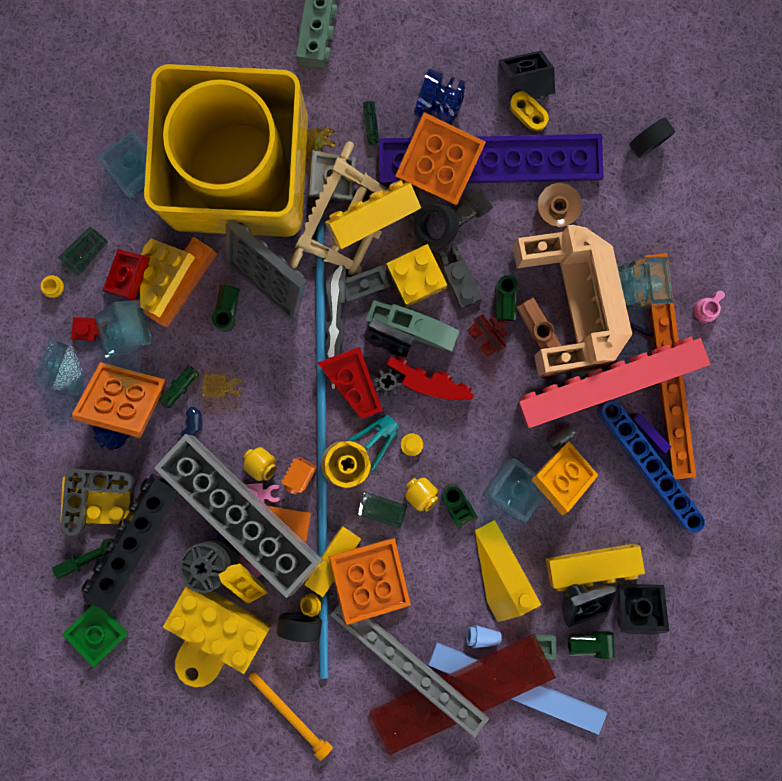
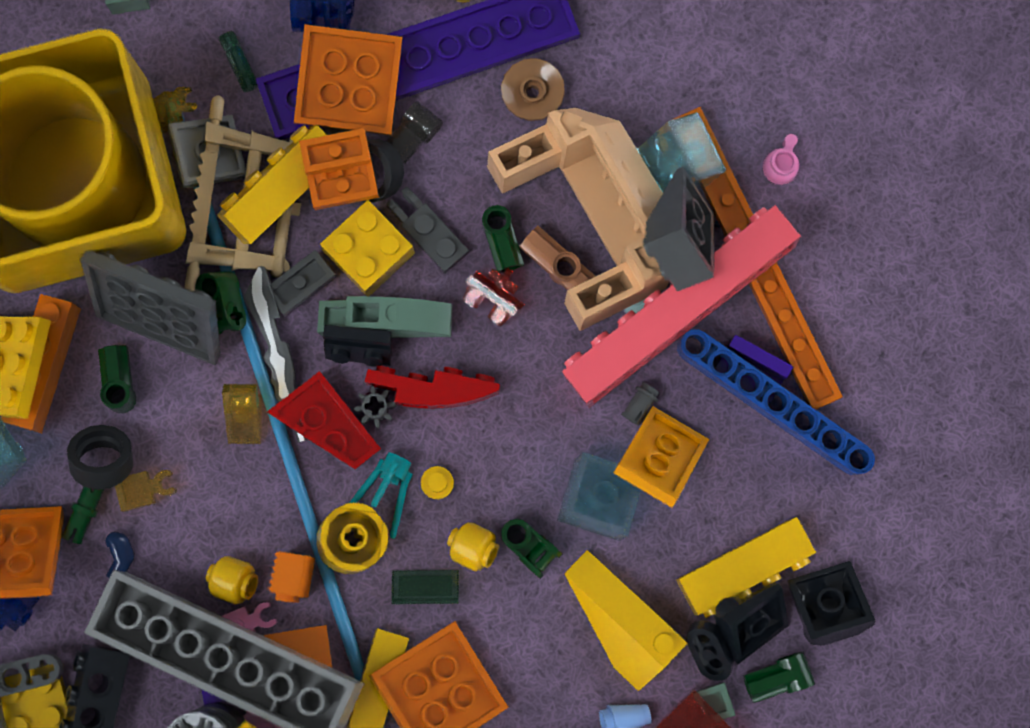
camera: 20 degrees left, 5 degrees down
(197, 370) = (98, 437): none -> black tyre
(300, 358) = (242, 413): none -> clear yellow slope
(314, 274) = (225, 291): none -> dark green piece
(415, 217) = (339, 169): none -> orange slope
(553, 613) = (705, 645): none -> black plate
(631, 337) = (681, 233): none -> dark grey slope

